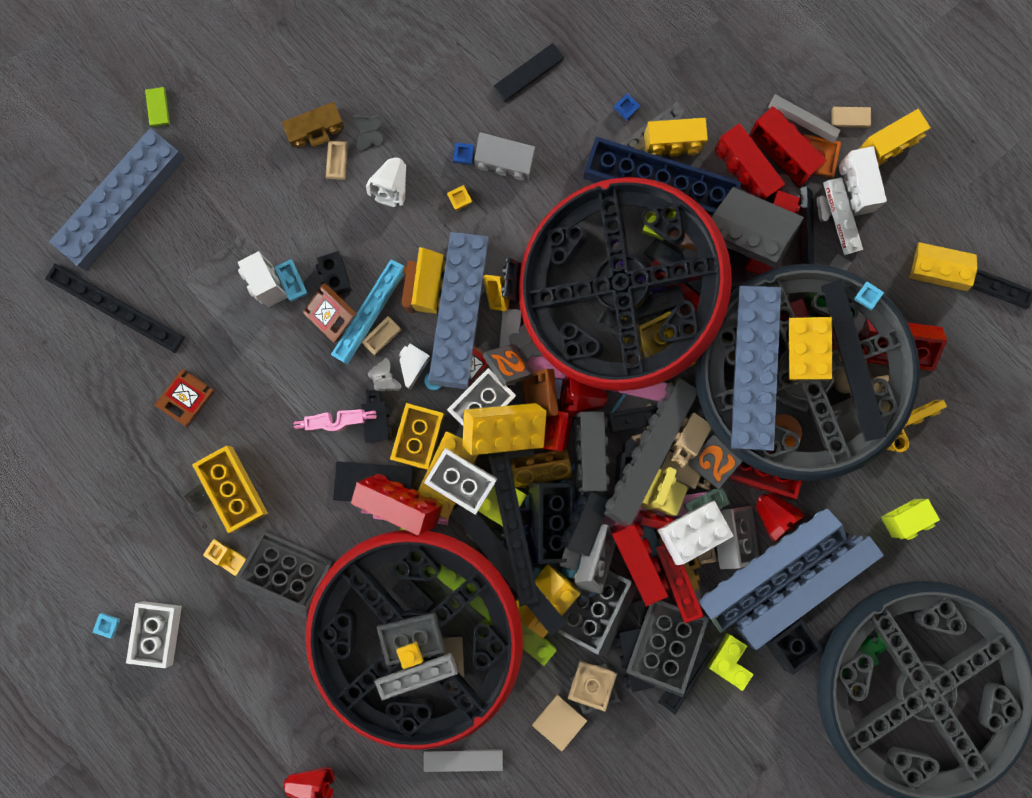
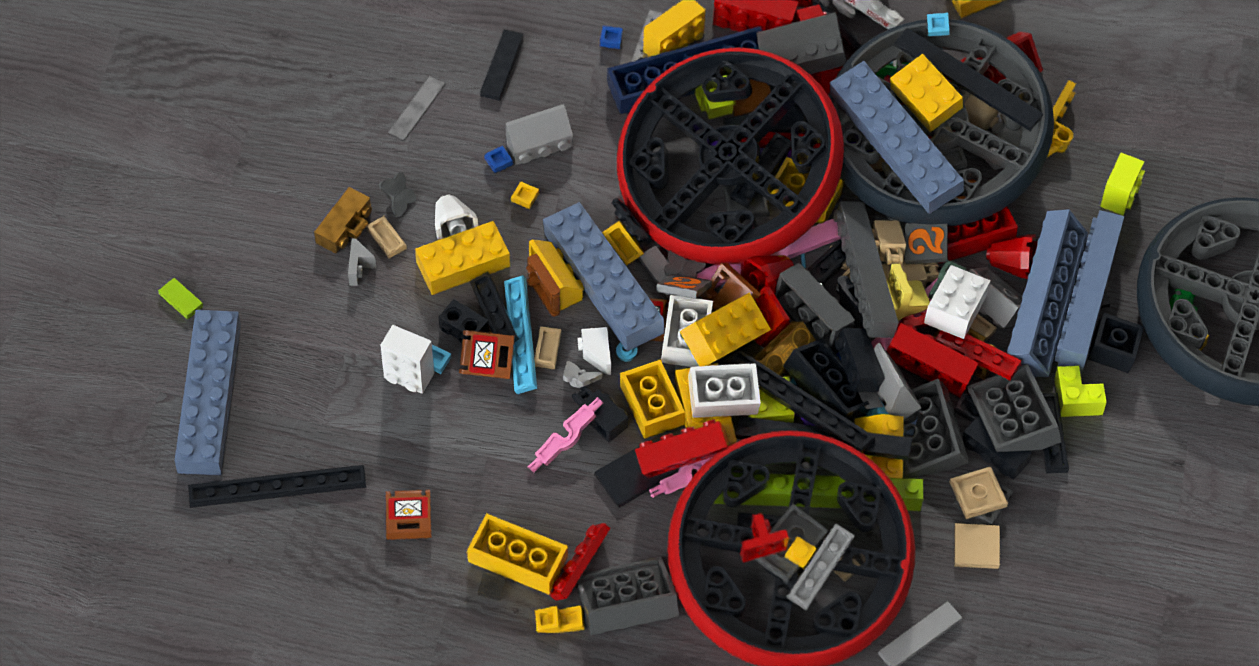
camera: 40 degrees left, 25 degrees down
(271, 525) = (583, 554): none -> red plate
(299, 164) = (359, 259): none -> light grey slope
(365, 277) = (492, 306): none -> black tile
(373, 219) = (462, 257): none -> yellow brick
(382, 635) = (763, 542): none -> red bracket
(440, 65) = (416, 108): none -> flat silver sticker

